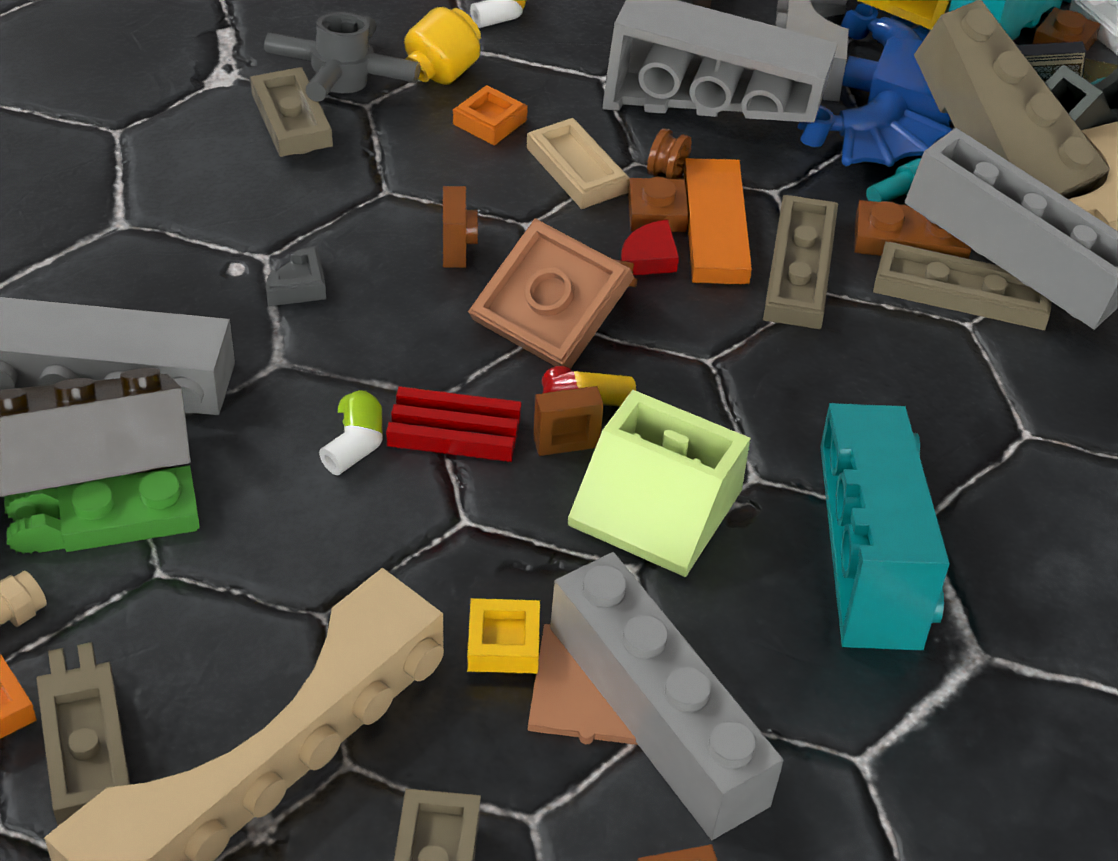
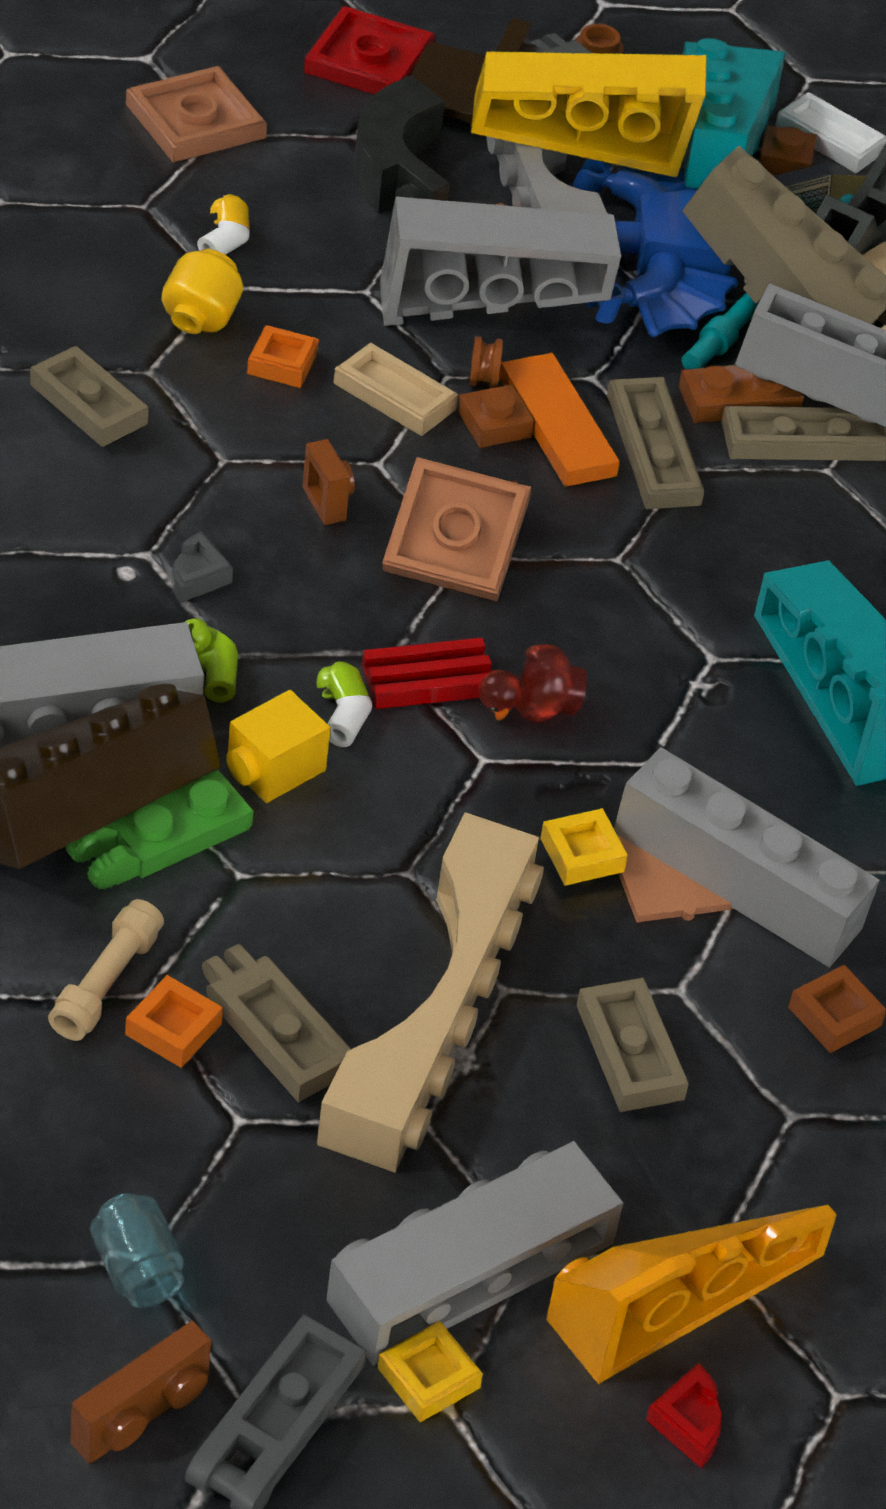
camera: 25 degrees left, 0 degrees up
(255, 457) = (277, 746): none -> yellow brick
(259, 359) = (217, 658): none -> lime arm
(341, 55) = (110, 324): dark grey bar -> none
(552, 468) = (544, 688): none -> clear red animal
(567, 420) = (543, 628): dark orange plate -> none
(612, 388) = (530, 612): yellow arm -> none
(651, 249) = (517, 460): red tile -> none
(660, 482) = (652, 679): yellowish green slope -> none

